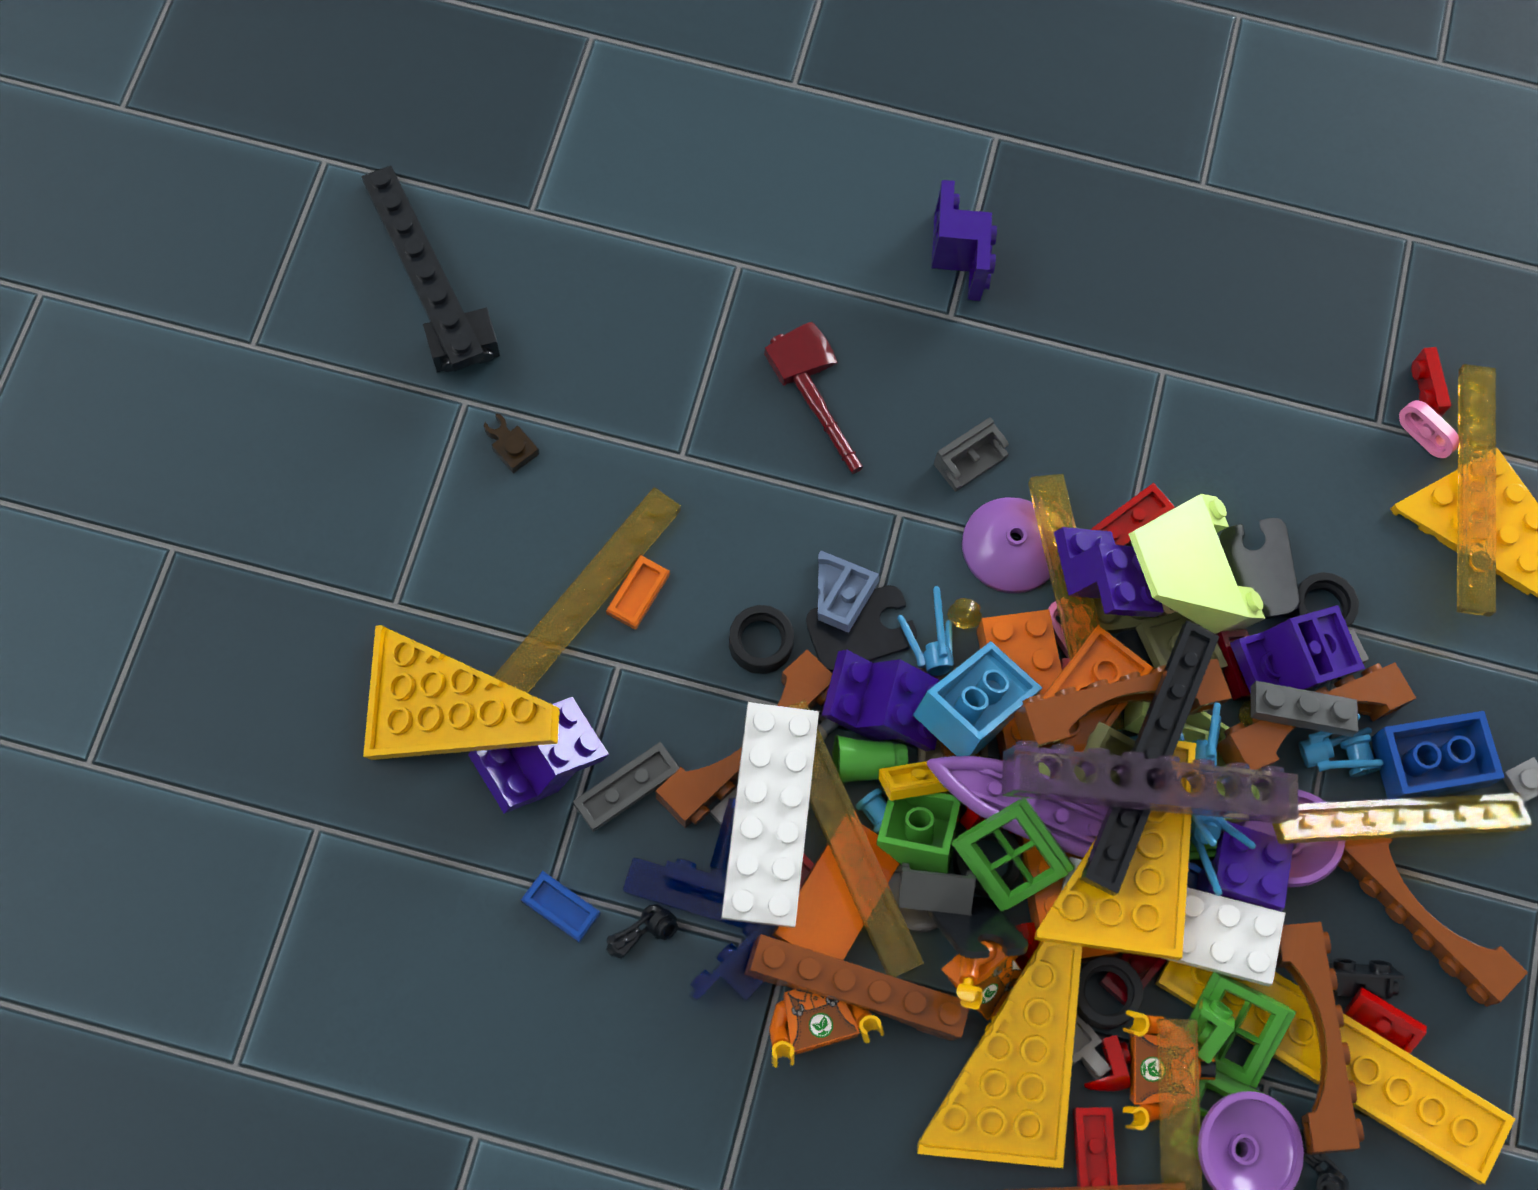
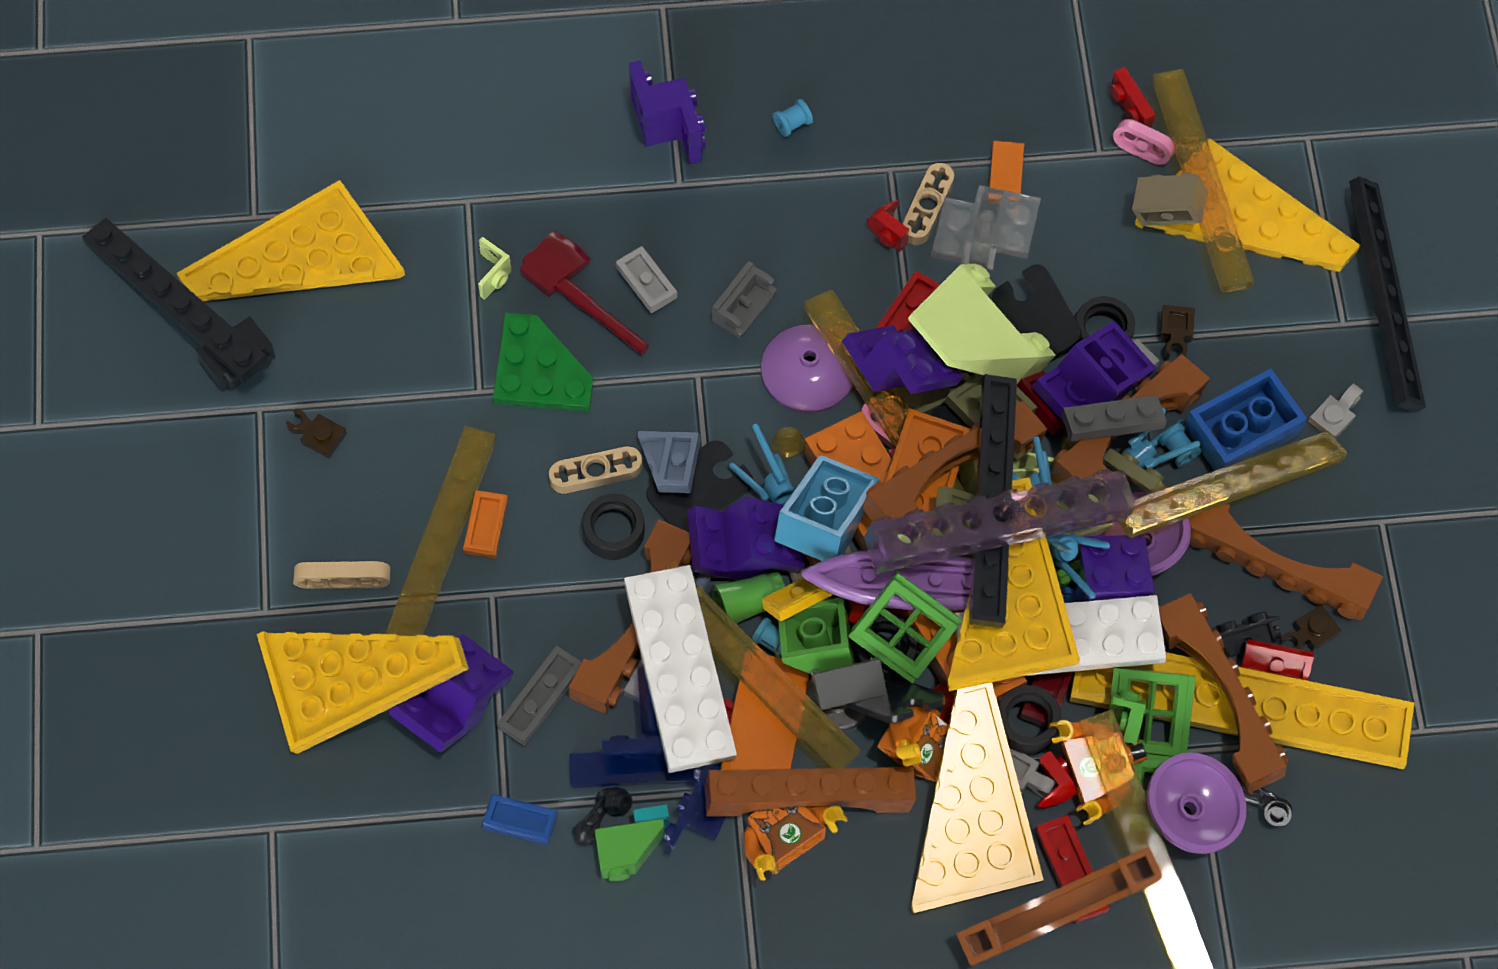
camera: 15 degrees left, 5 degrees down
(479, 595) = (341, 575): none -> tan beam
(566, 257) = (305, 247): none -> yellow wing
(652, 977) = (627, 847): none -> bright green slope
(689, 955) = (652, 813): none -> teal tile
(741, 346) = (499, 273): none -> yellowish green bracket
(747, 454) = (538, 368): none -> green plate
(776, 565) = (570, 467): none -> tan beam
(883, 401) = (646, 279): none -> light grey plate
(1084, 287) = (792, 117): none -> dark azure bush
(1139, 429) = (887, 228): none -> red plate
(1185, 431) = (926, 191): none -> tan beam
(1242, 463) = (992, 224): none -> clear bracket
(1278, 412) = (1007, 166): none -> orange tile
(1299, 762) = (1147, 480): none -> olive plate
(1399, 631) = (1177, 327): none -> dark brown plate
(1433, 998) = (1313, 629): none -> dark brown plate
(1437, 498) = (1169, 199): none -> dark tan brick

